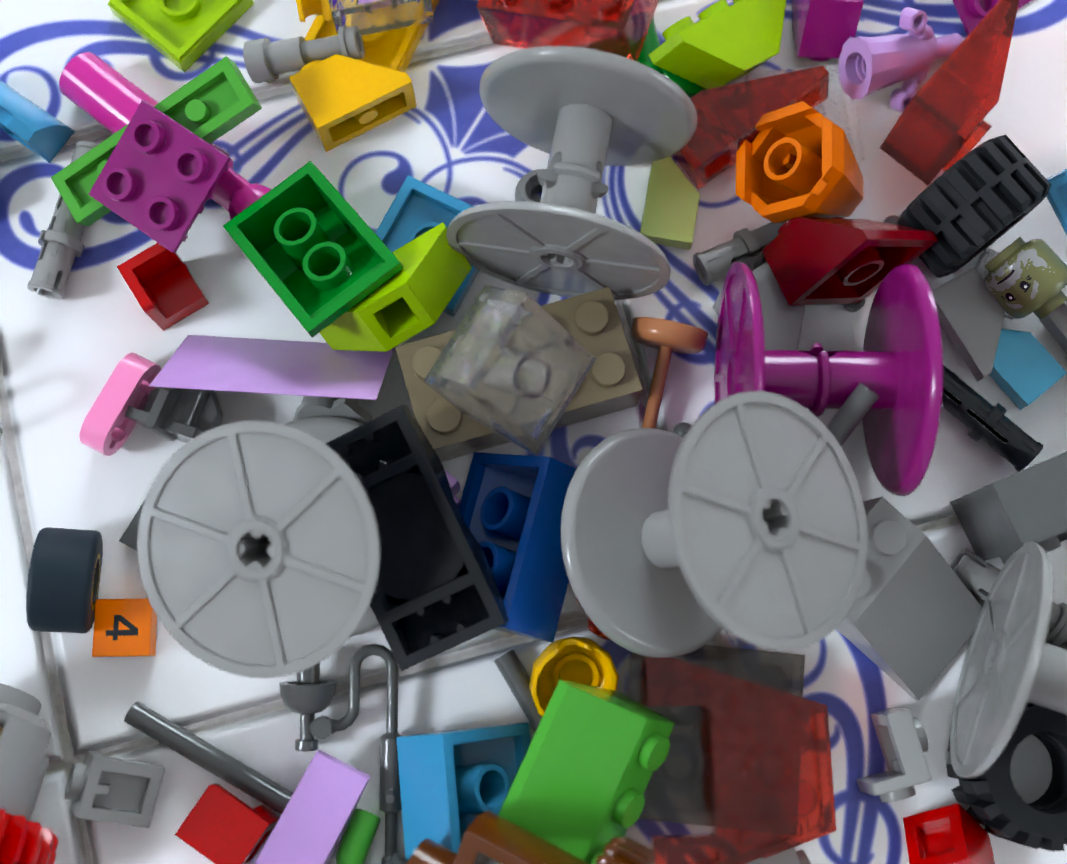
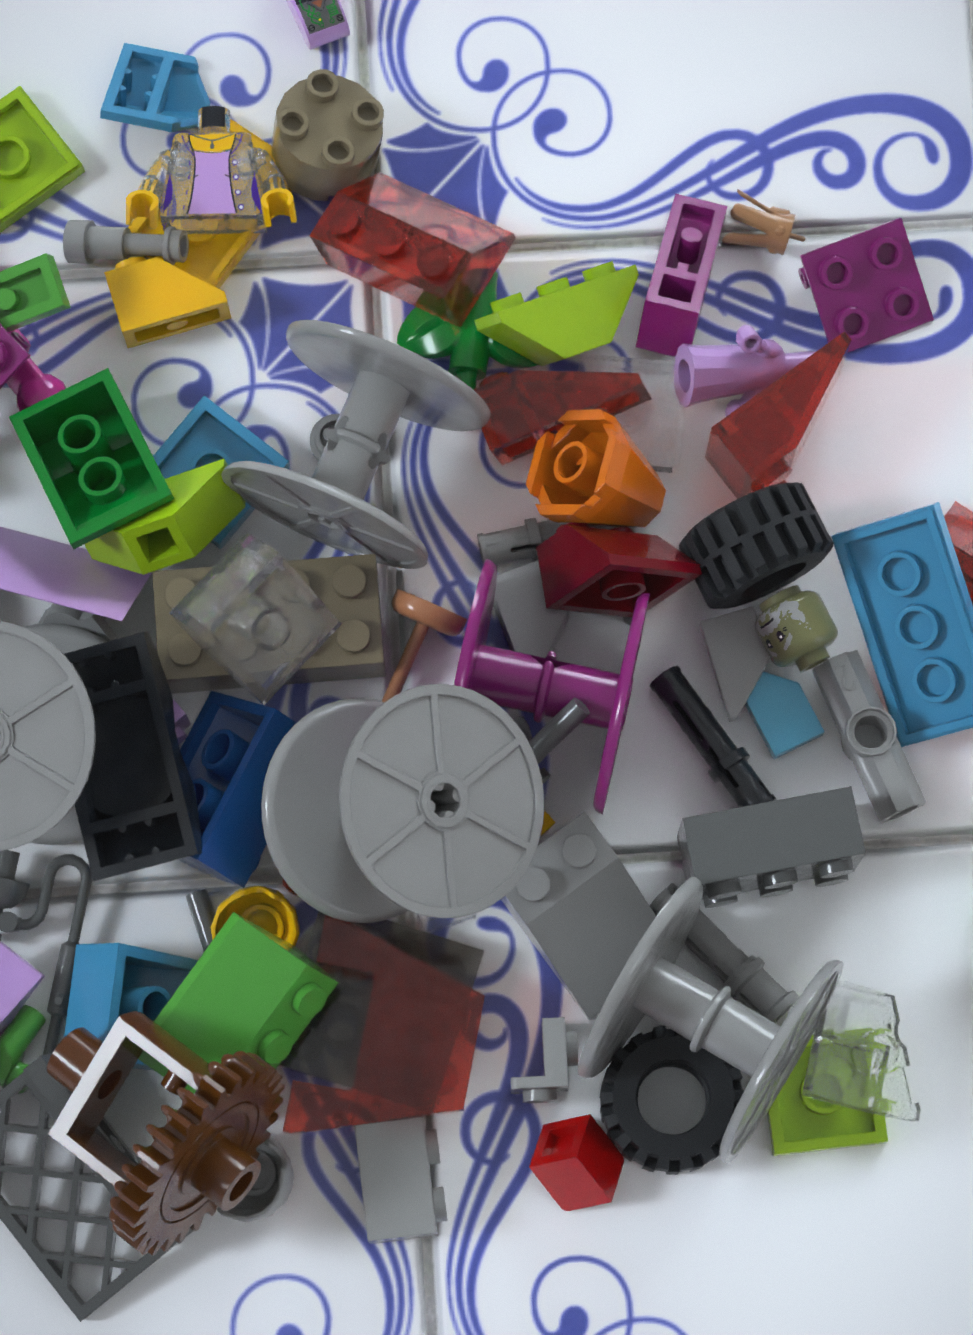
camera: 15 degrees right, 0 degrees up
(669, 206) = (465, 479): yellowish green tile -> none

